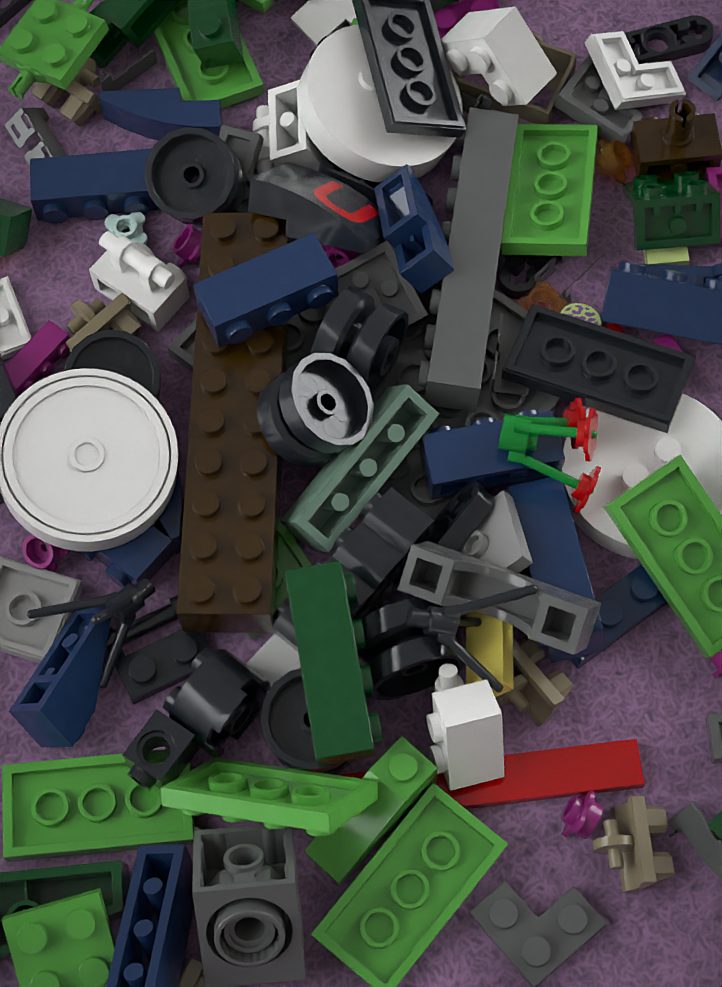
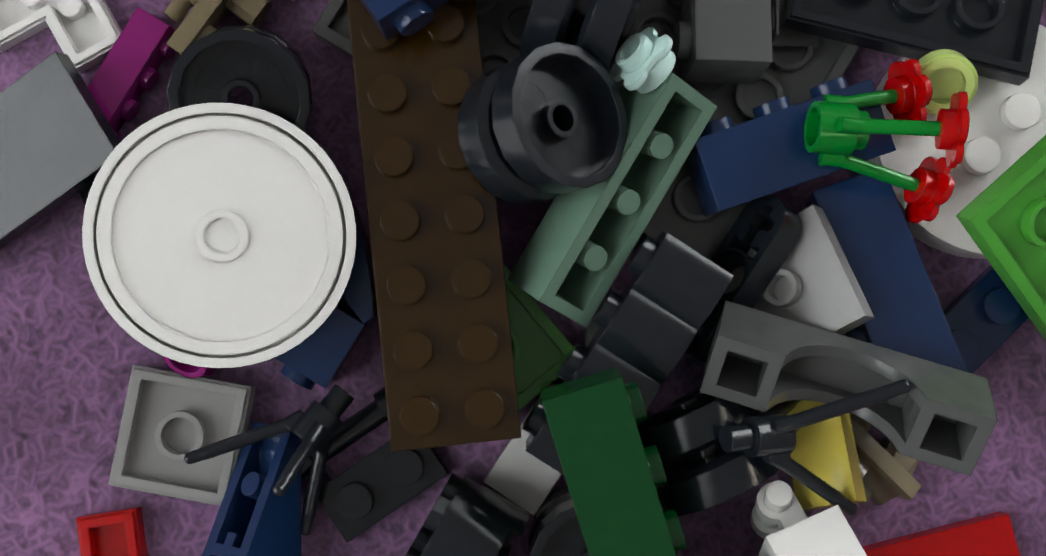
camera: 10 degrees left, 20 degrees up
(390, 377) = (644, 61): none -> light aqua plate
(613, 421) = (949, 74): none -> yellowish green tile

